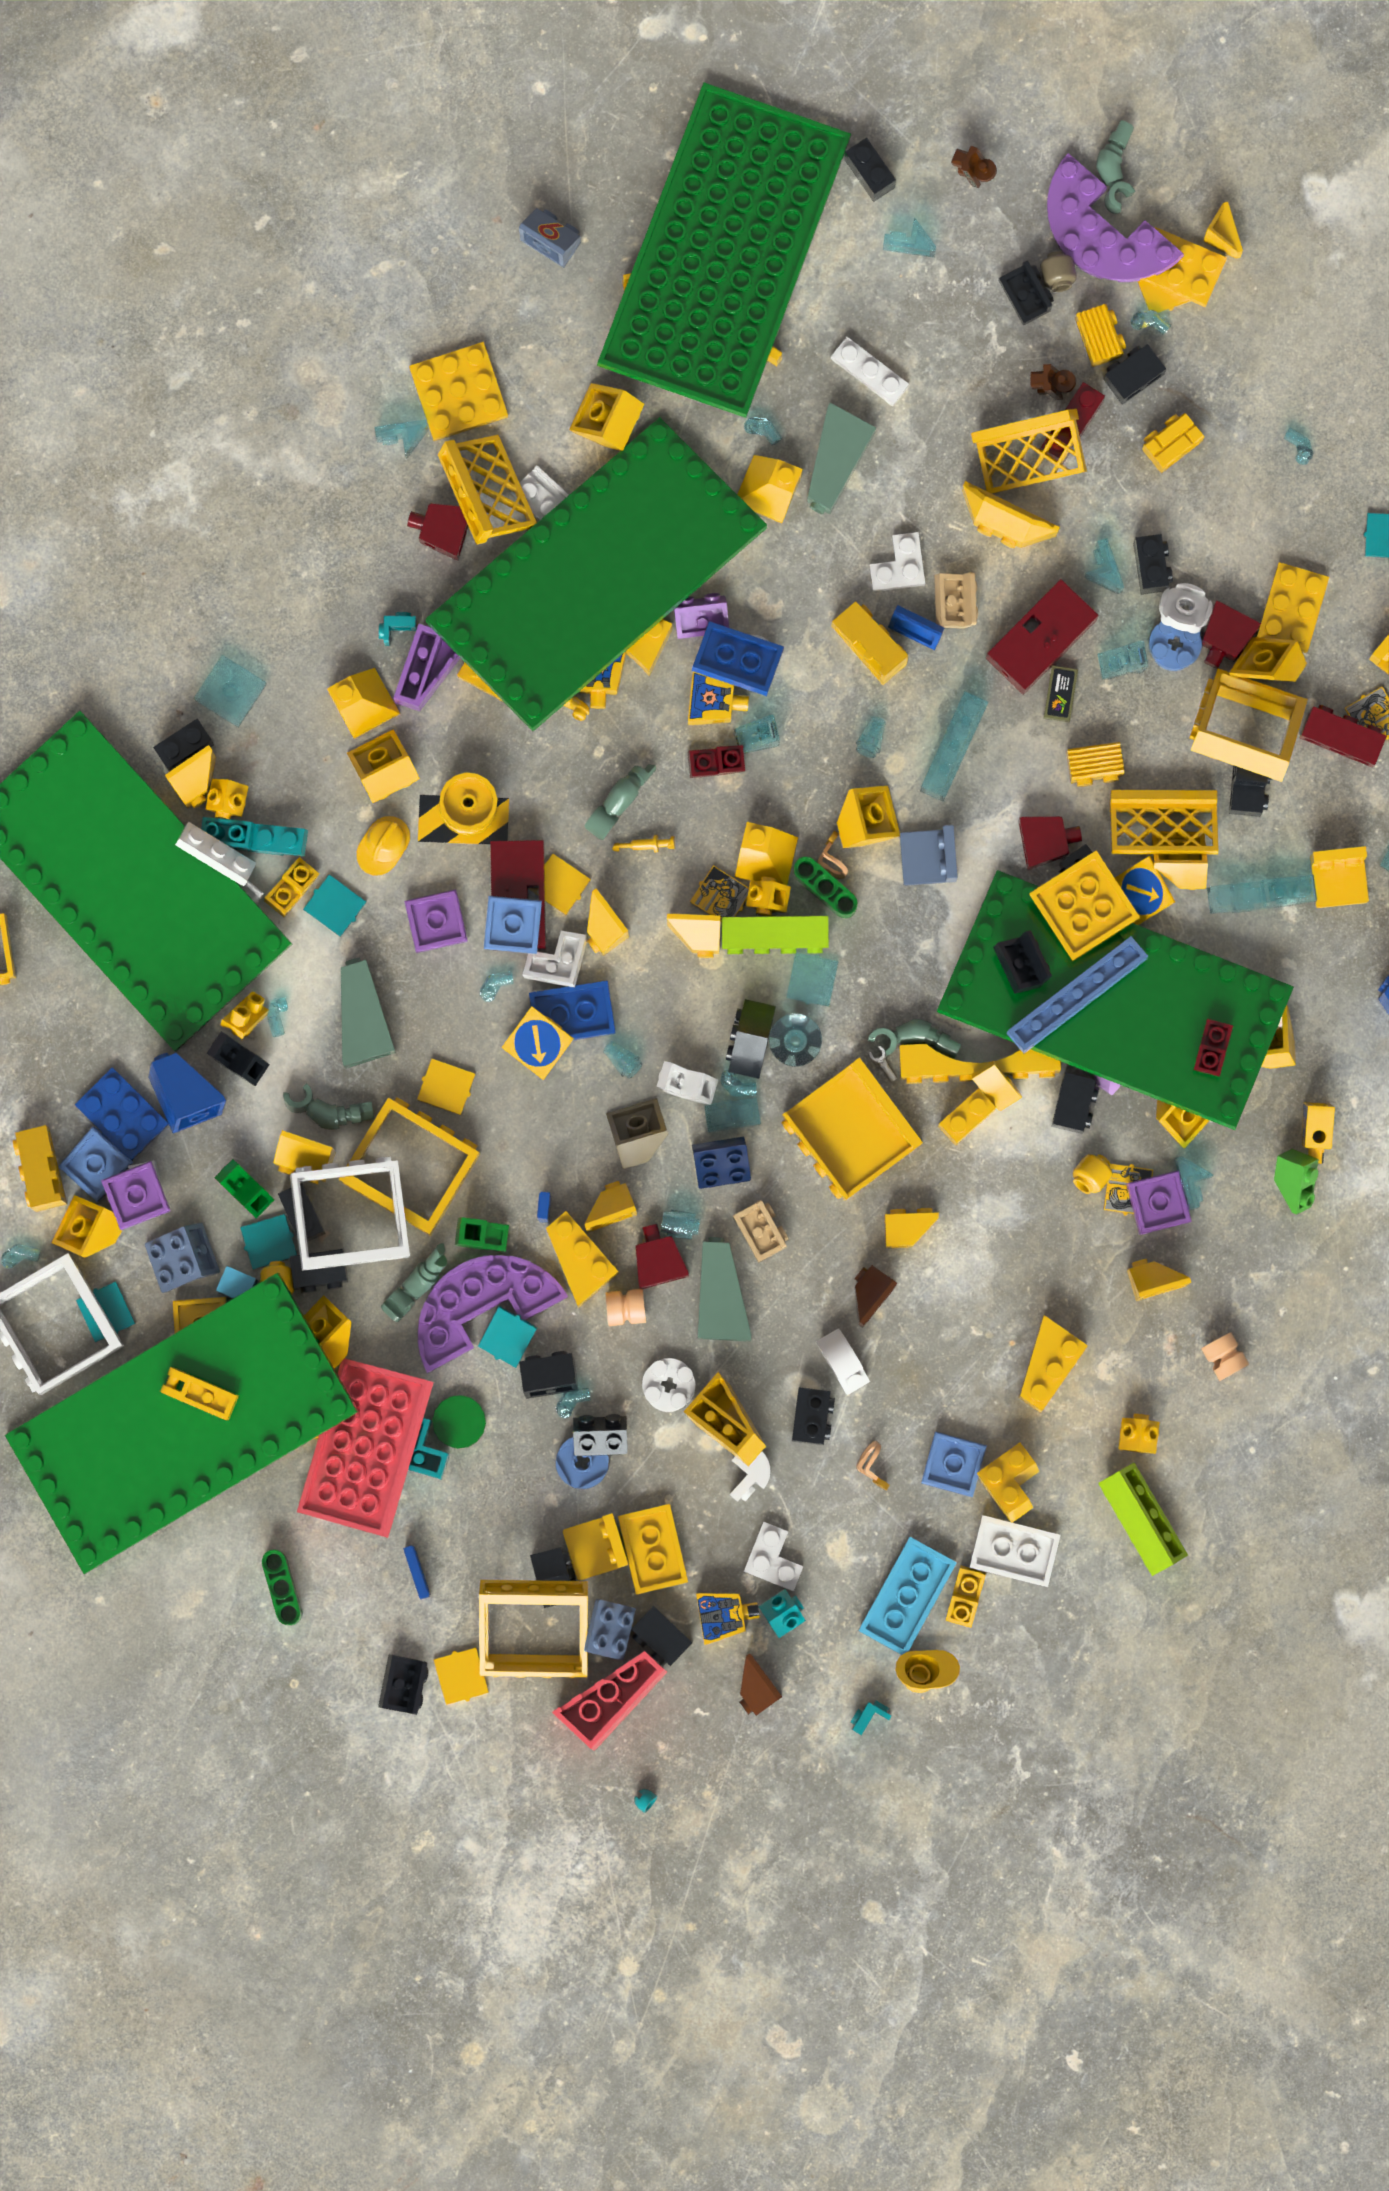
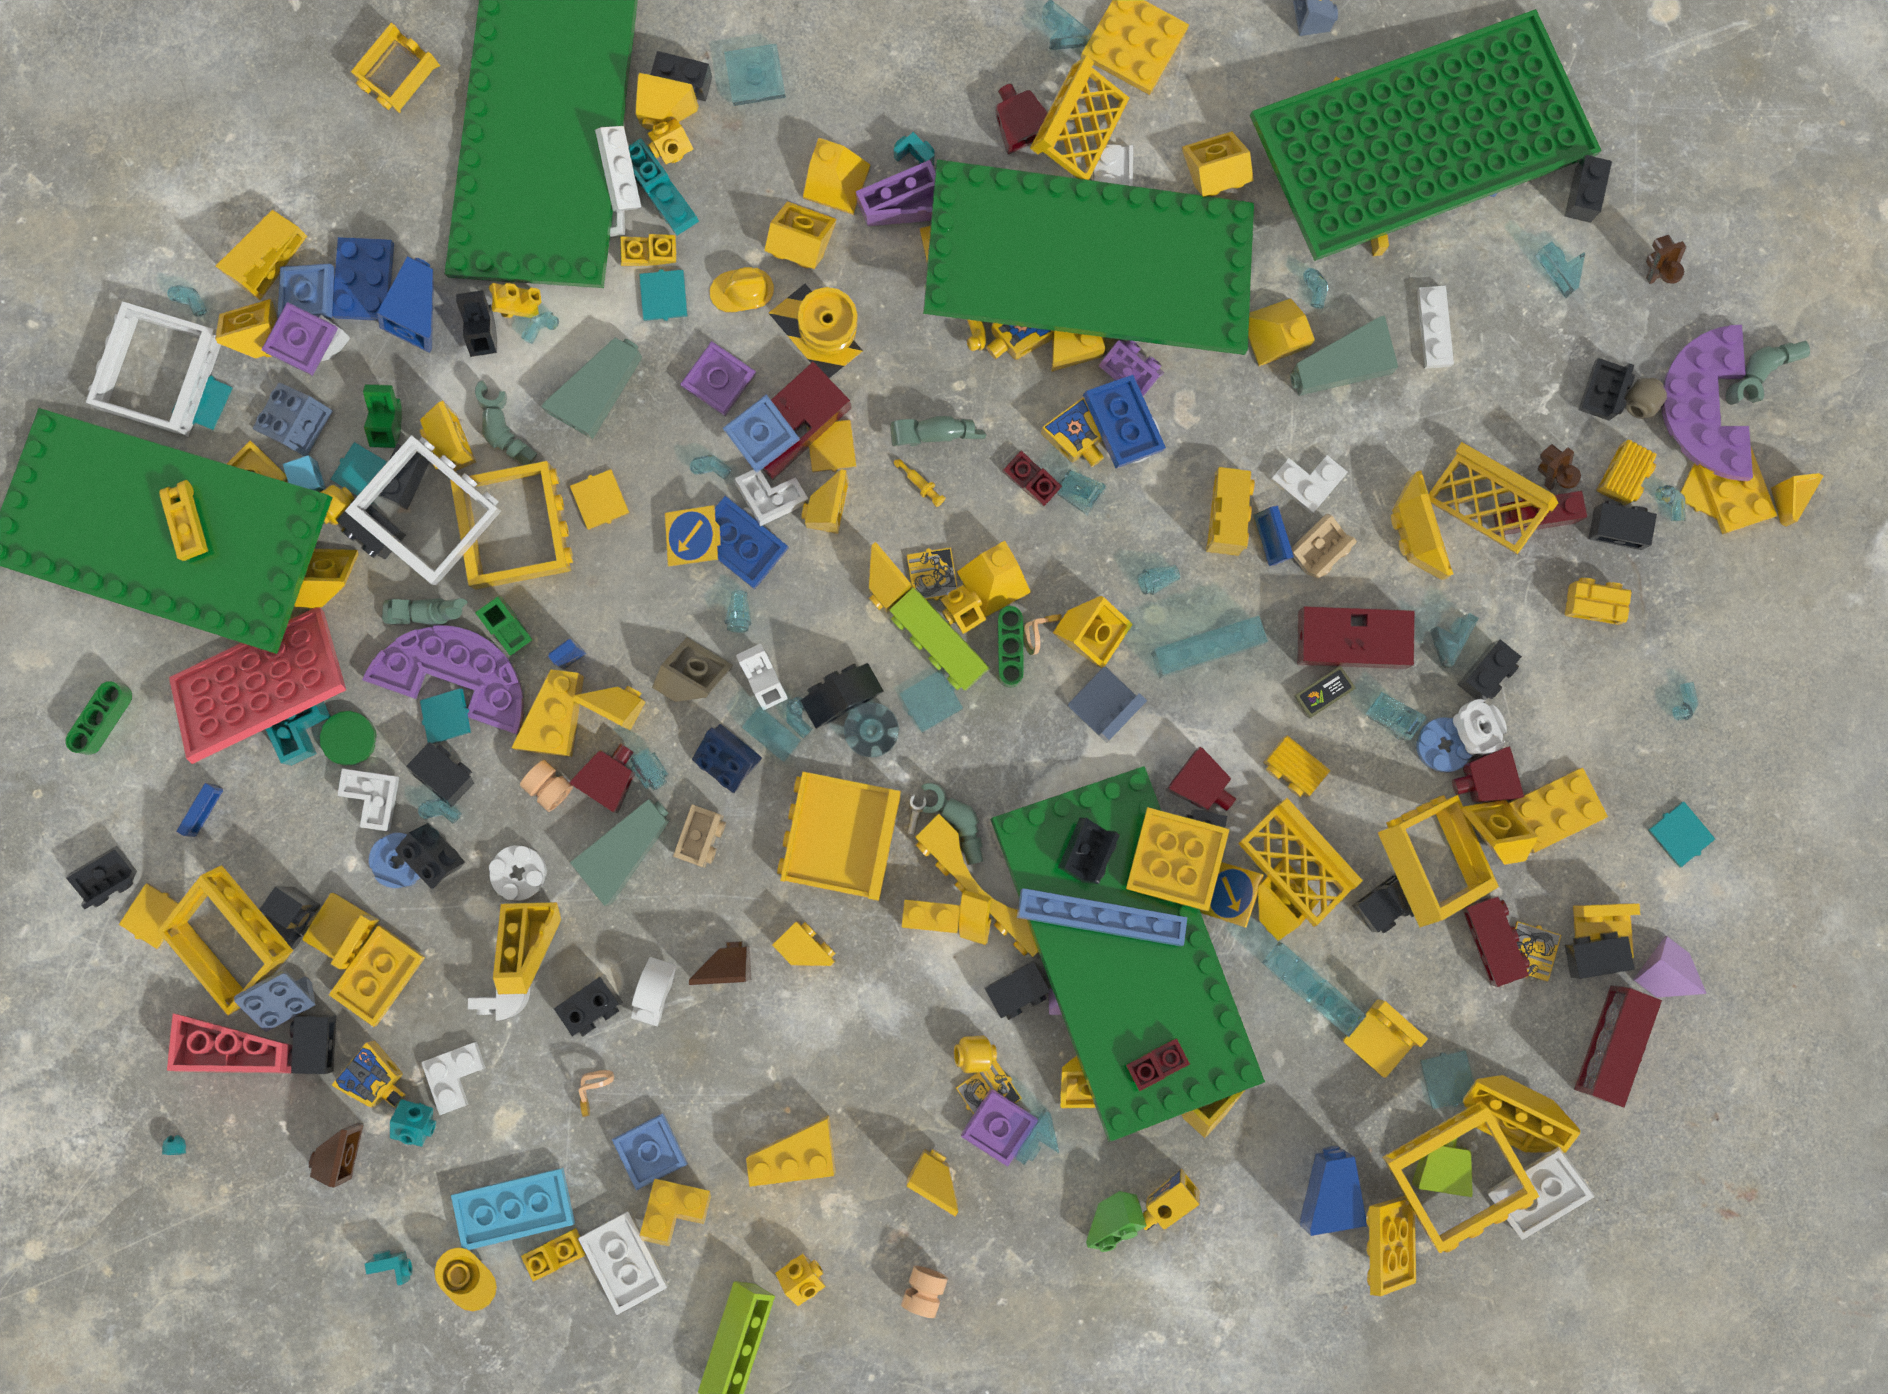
camera: 45 degrees right, 0 degrees up
(519, 1433) = (378, 795): none -> white plate

